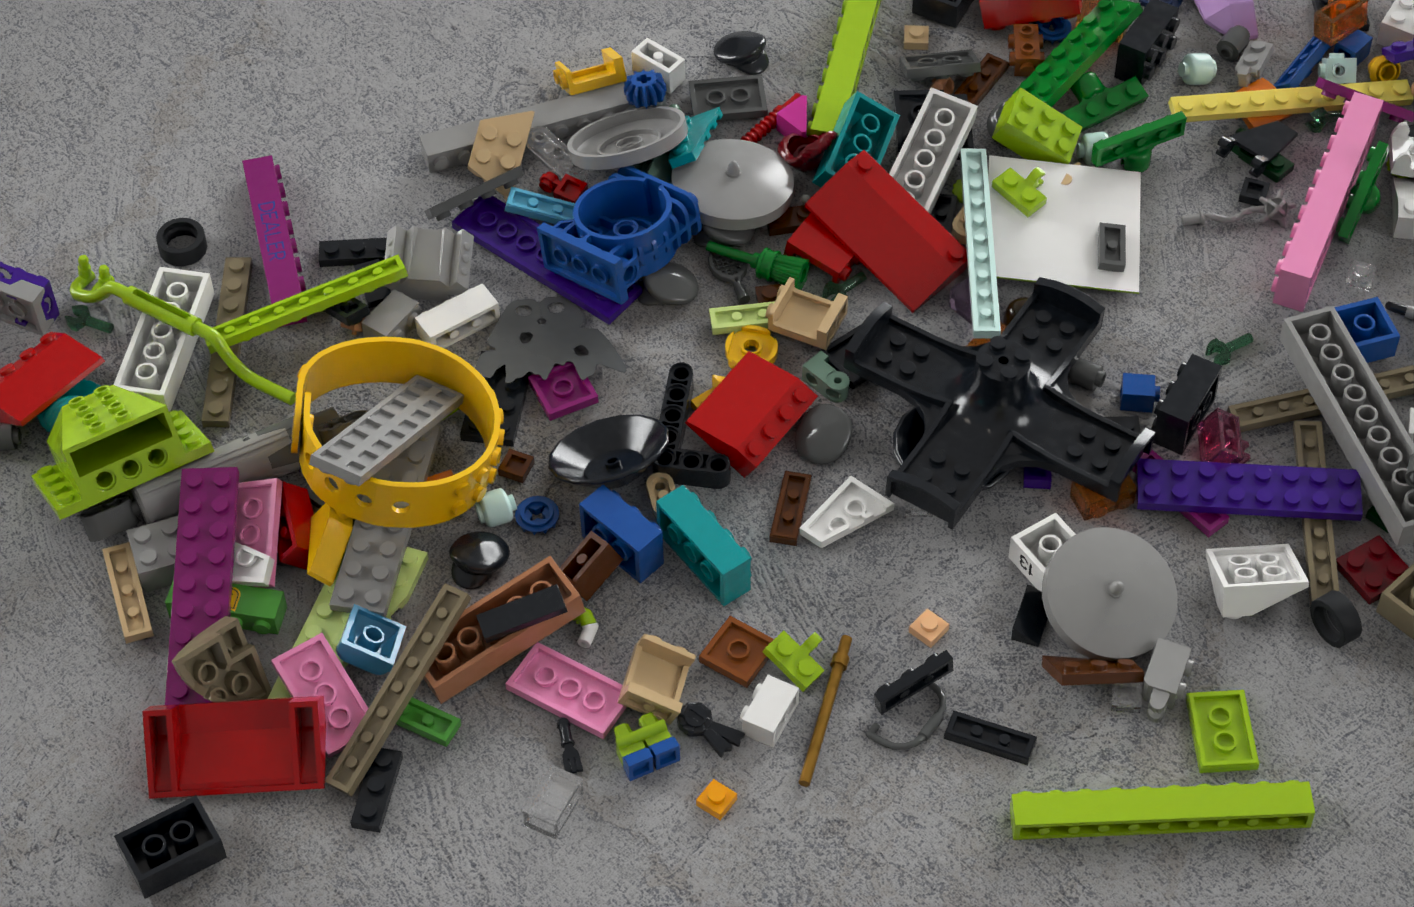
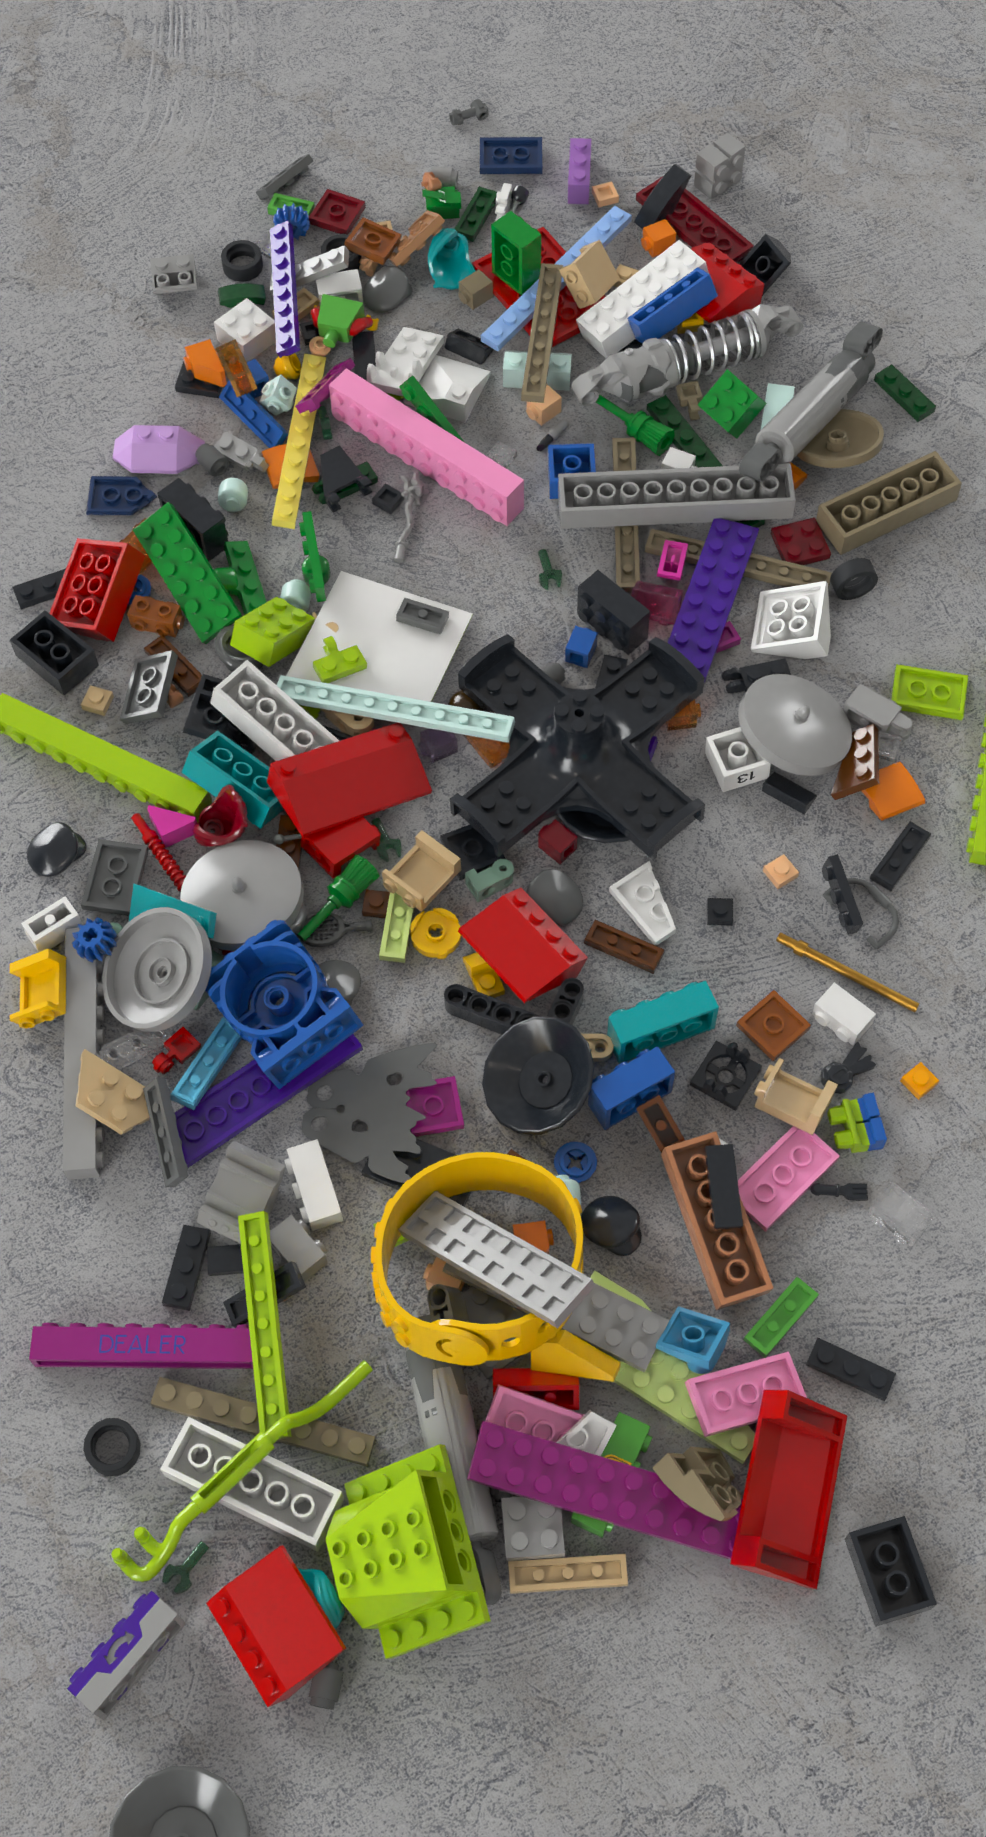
camera: 75 degrees left, 10 degrees up
(398, 690) = (769, 1319): dark tan plate -> none
(658, 600) = (719, 1090): none -> black piece
(795, 659) = (793, 981): lime plate -> none
(860, 582) = (720, 911): none -> black plate
(886, 420) = (557, 841): none -> dark red brick
(1069, 712) = (894, 793): none -> orange slope
(1183, 571) = (751, 673): none -> black hinge
(1279, 445) = (672, 560): none -> dark pink slope

